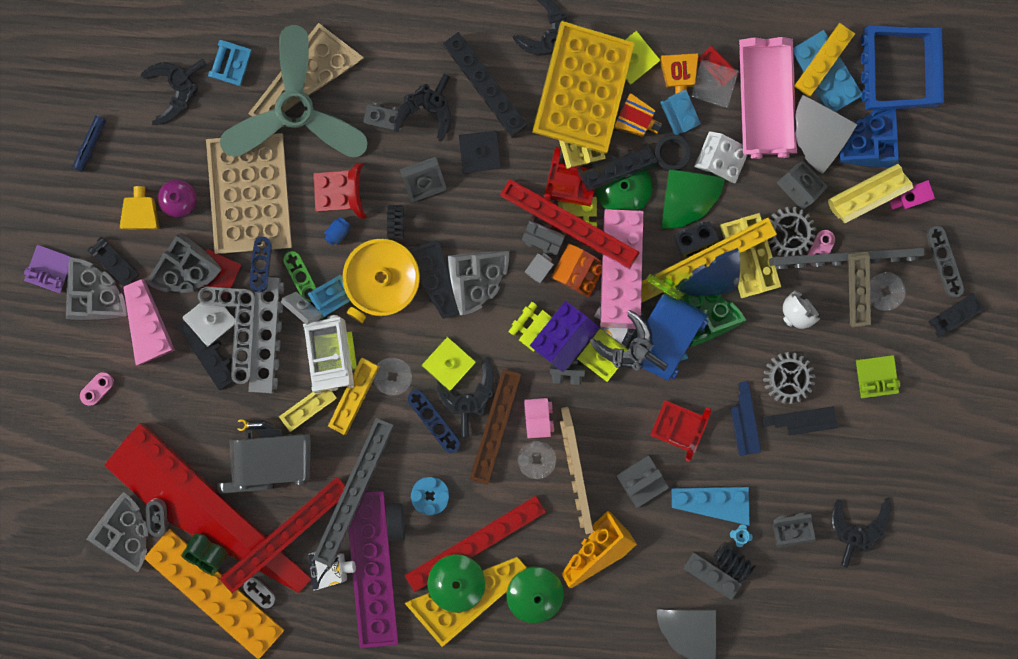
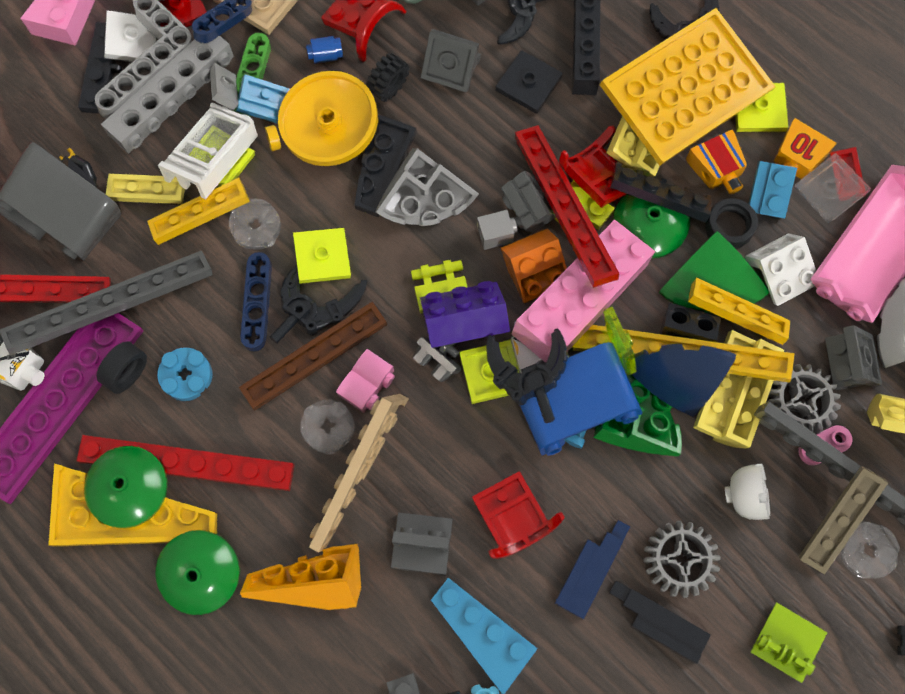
camera: 40 degrees right, 15 degrees down
(717, 207) = (739, 311): none -> yellow plate

